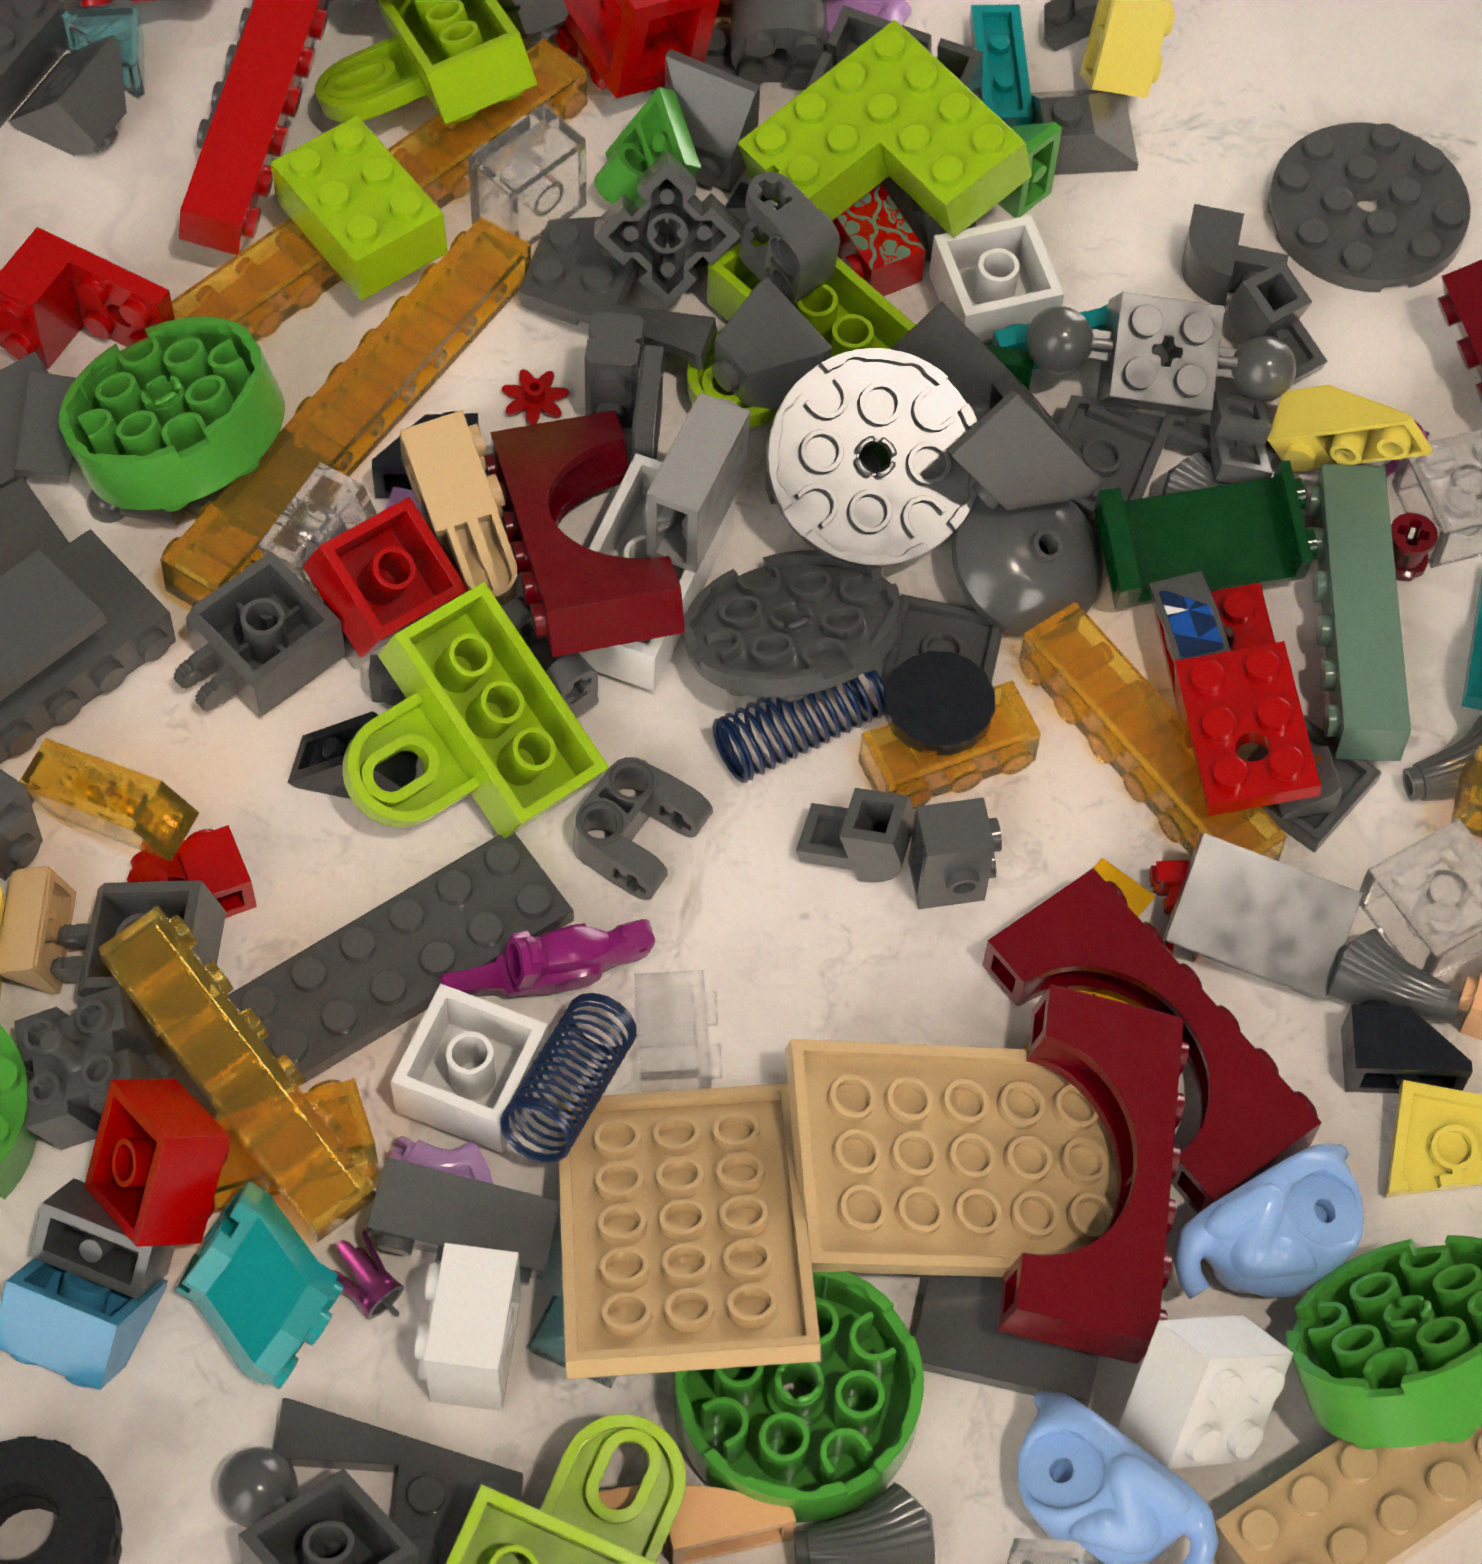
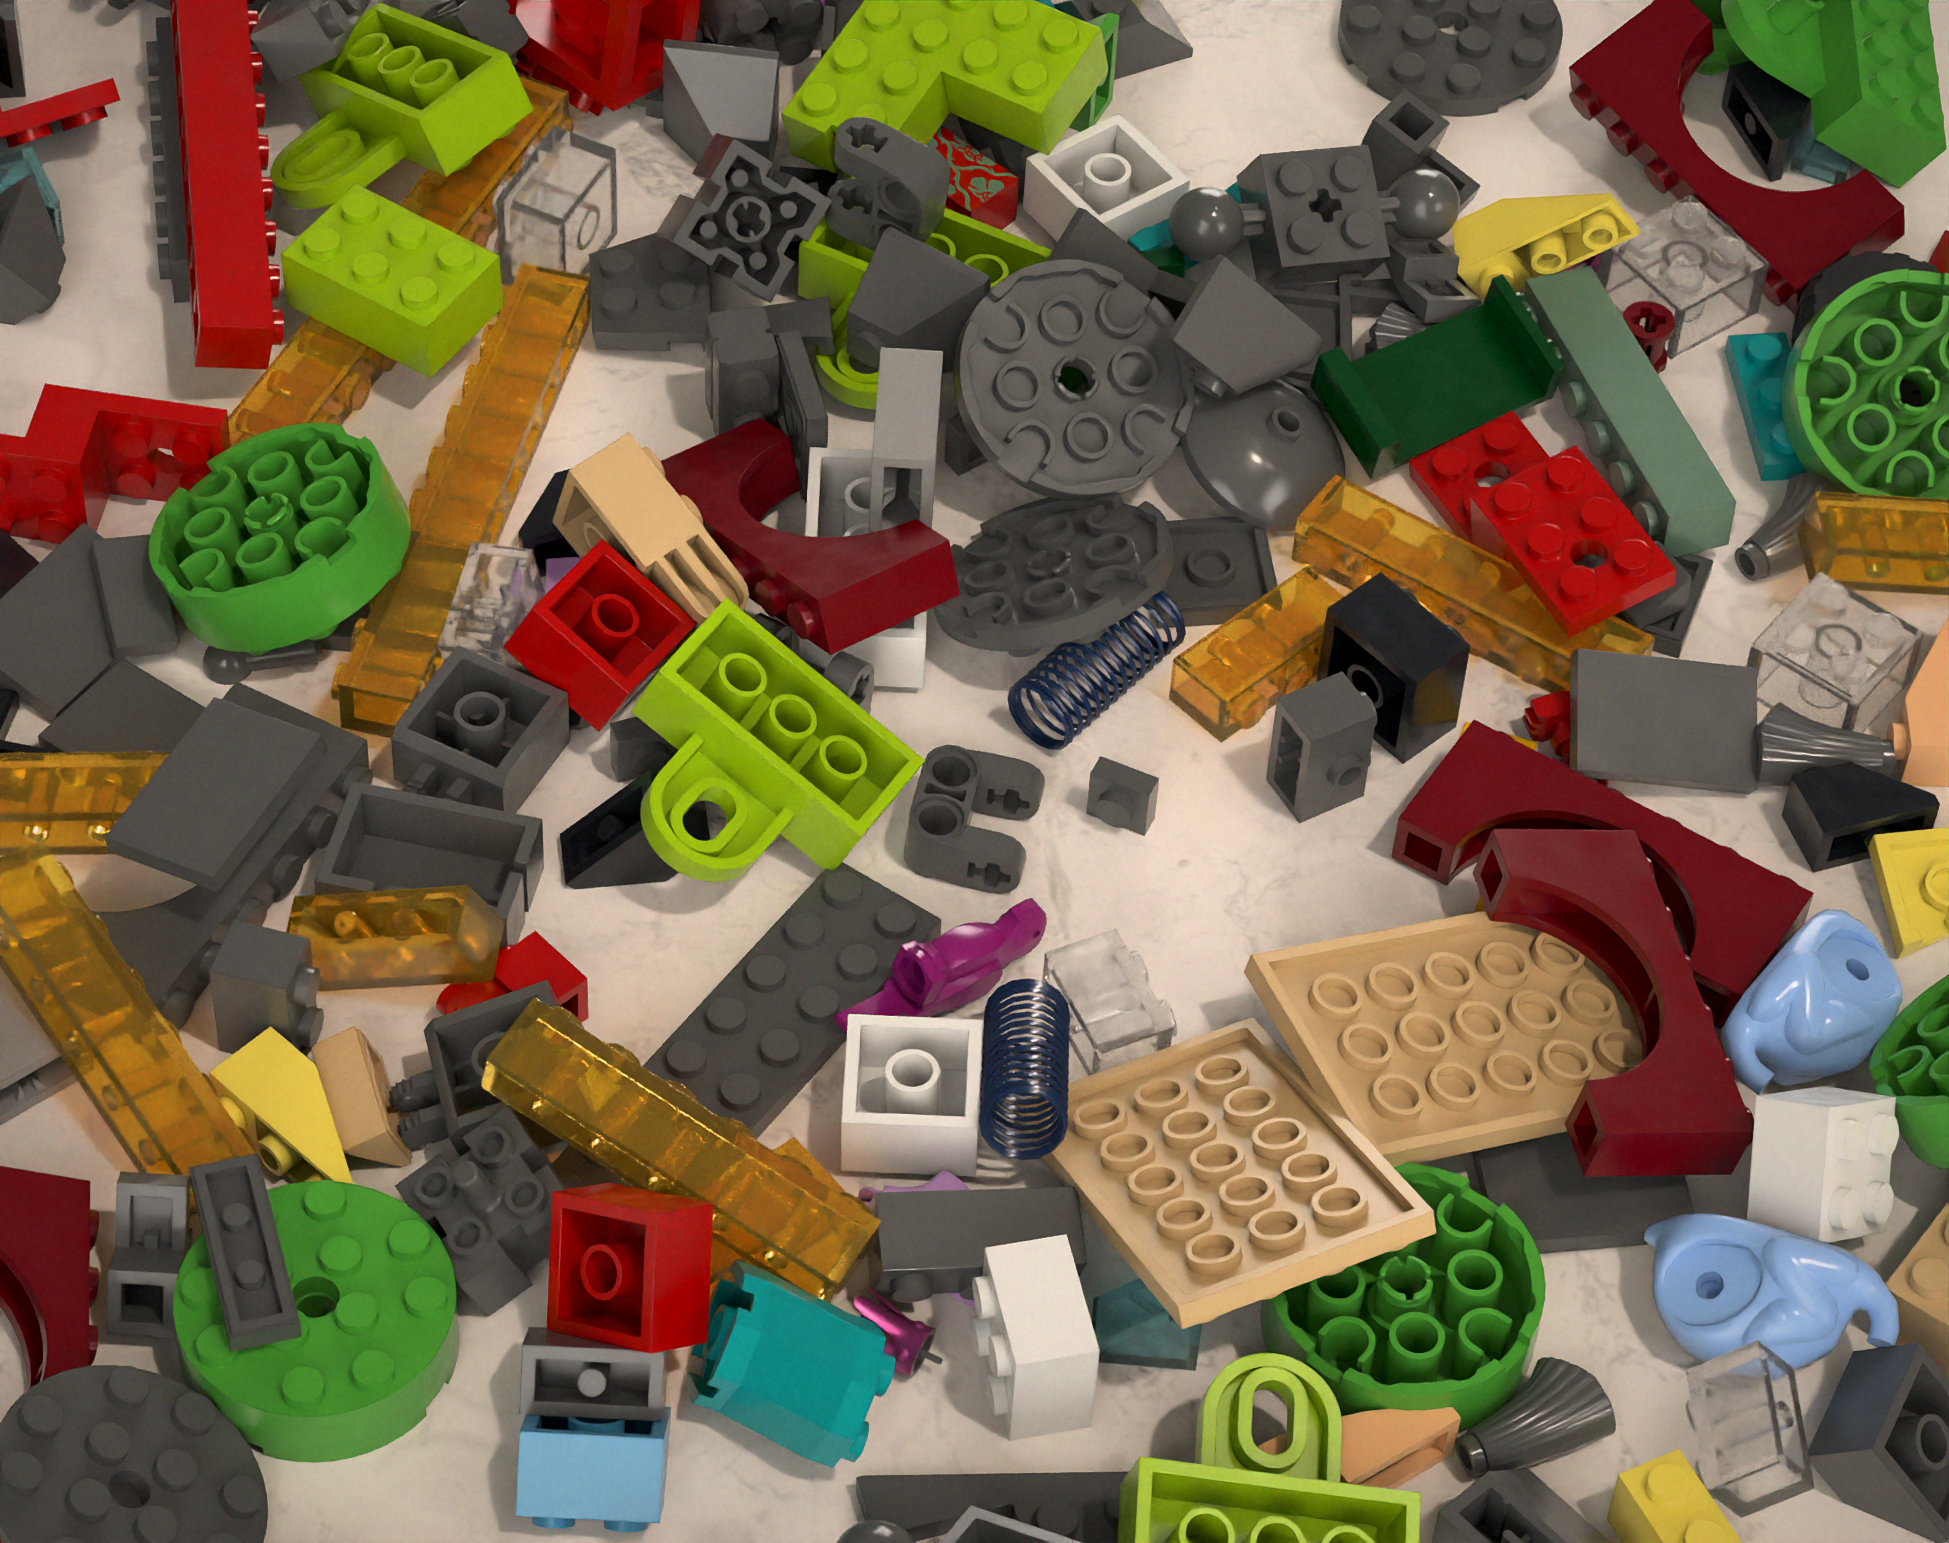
camera: 20 degrees left, 10 degrees down
(177, 735) = (425, 841): none -> dark grey piece
(534, 396) = (655, 432): red plant -> none
(648, 135) = (668, 152): bright green plate -> none
(770, 844) = (1122, 796): none -> dark grey plate
(864, 838) = (1224, 763): dark grey brick -> none
(939, 703) = (1244, 604): black tile -> none
(1046, 796) = (1400, 659): none -> black brick
(1188, 616) = (1458, 457): slope -> none
(1213, 258) = (1317, 113): dark grey brick -> none

